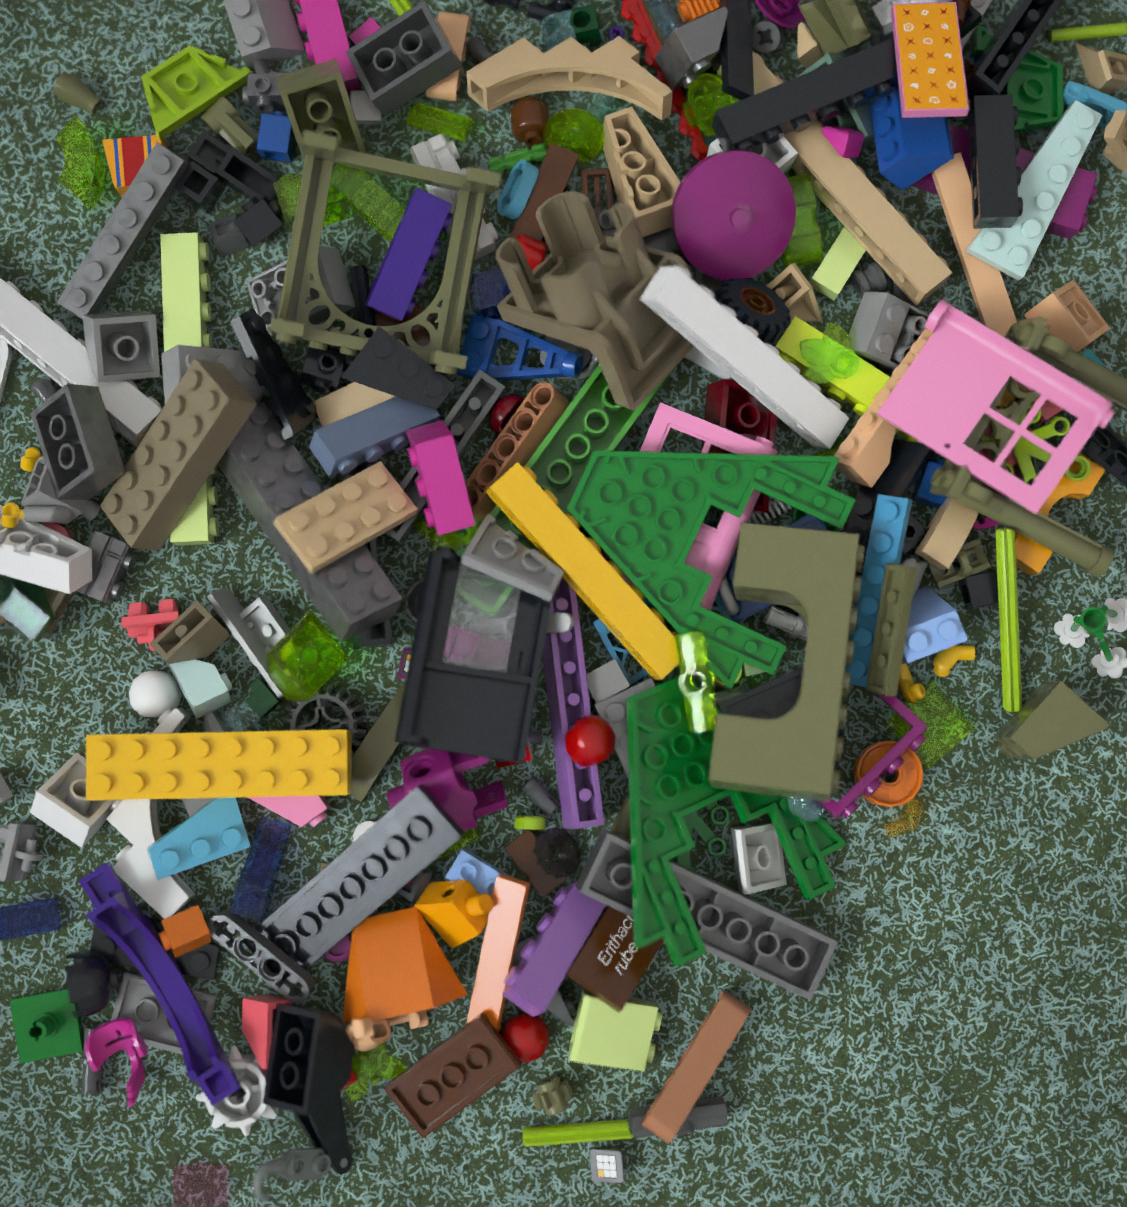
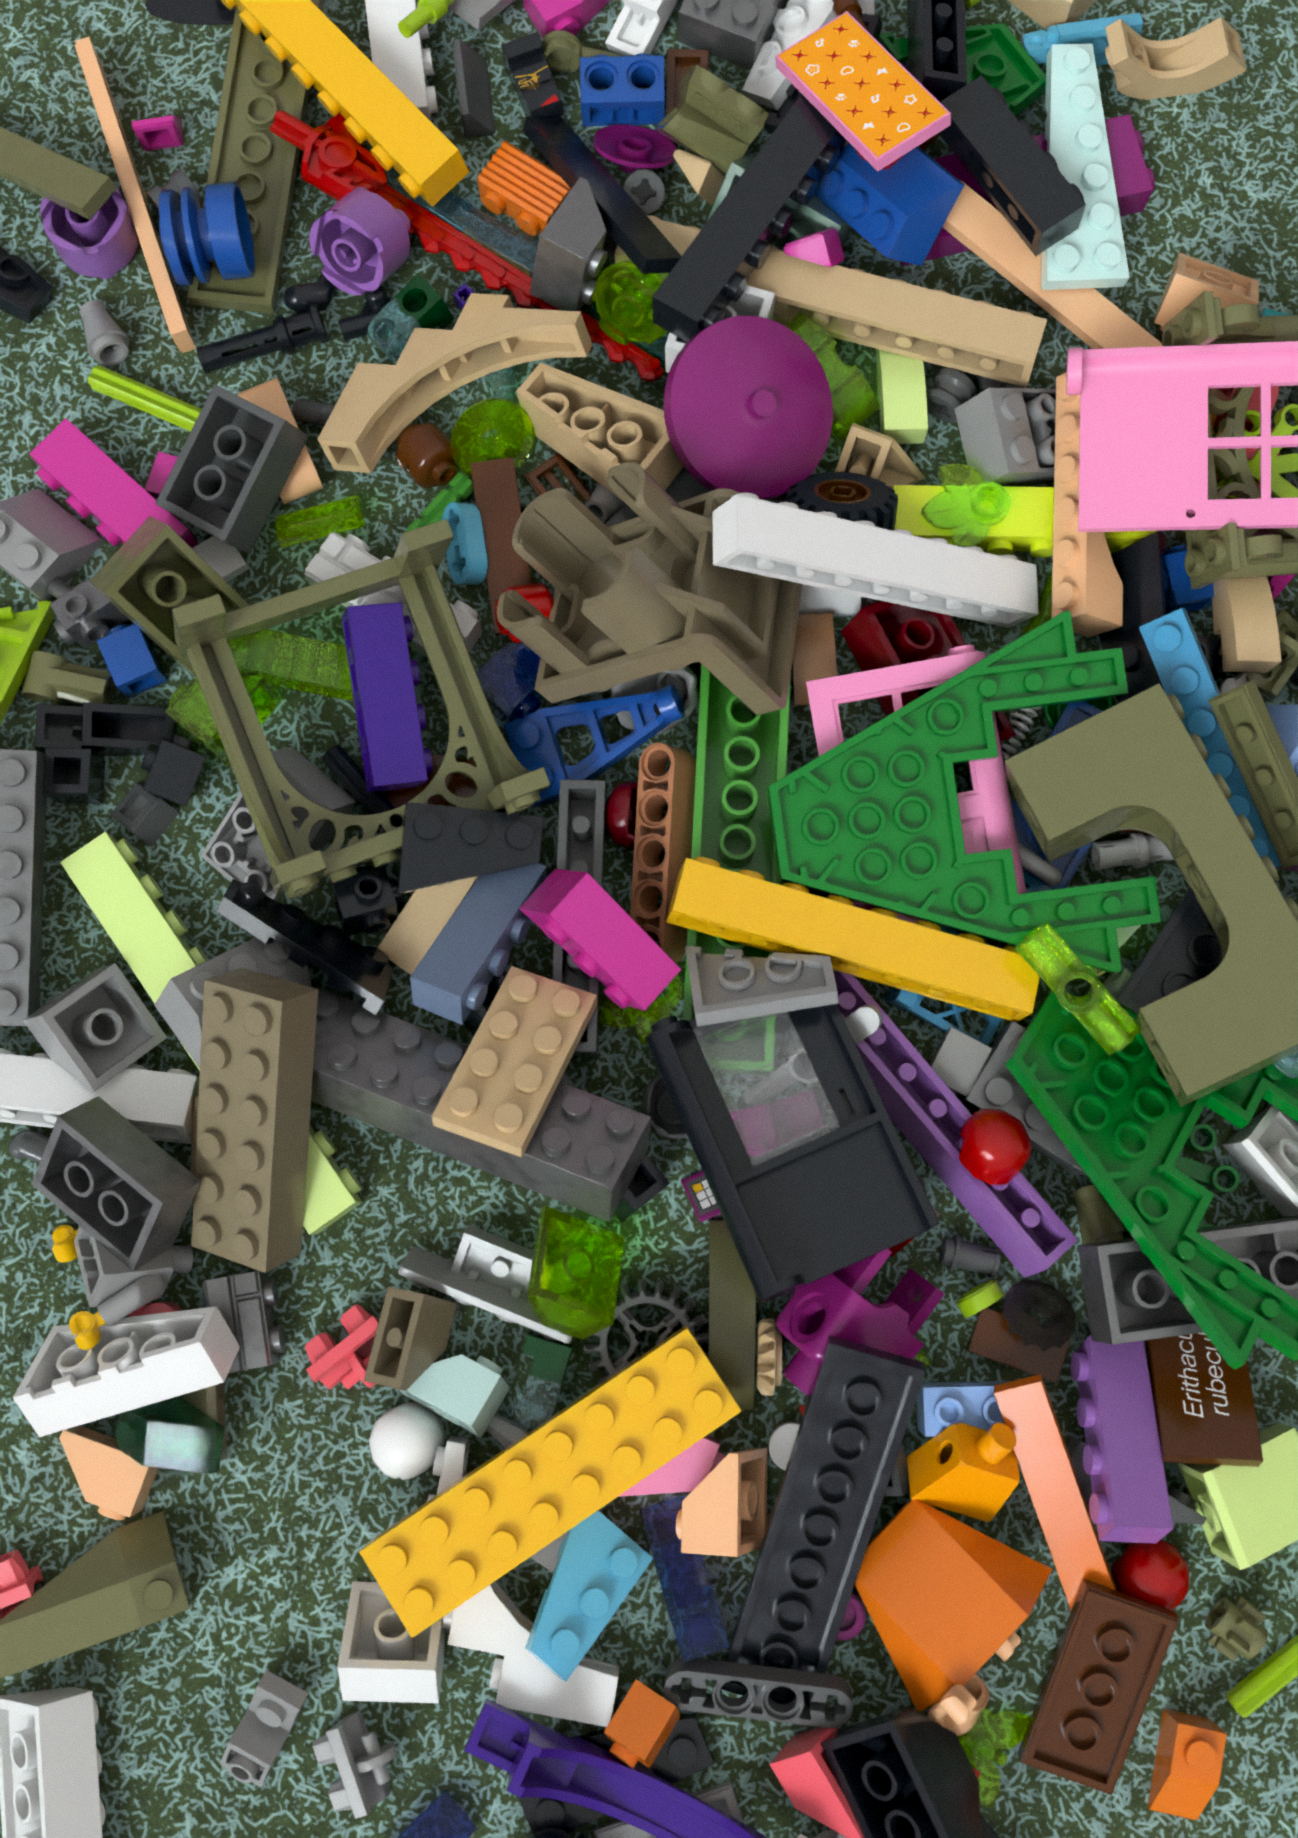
camera: 25 degrees left, 5 degrees down
(309, 843) = (727, 1508): none -> light nougat slope
(386, 777) = (768, 1357): none -> tan gear
(474, 1148) = (1186, 1764): none -> orange slope
(682, 385) = (813, 653): none -> medium nougat slope

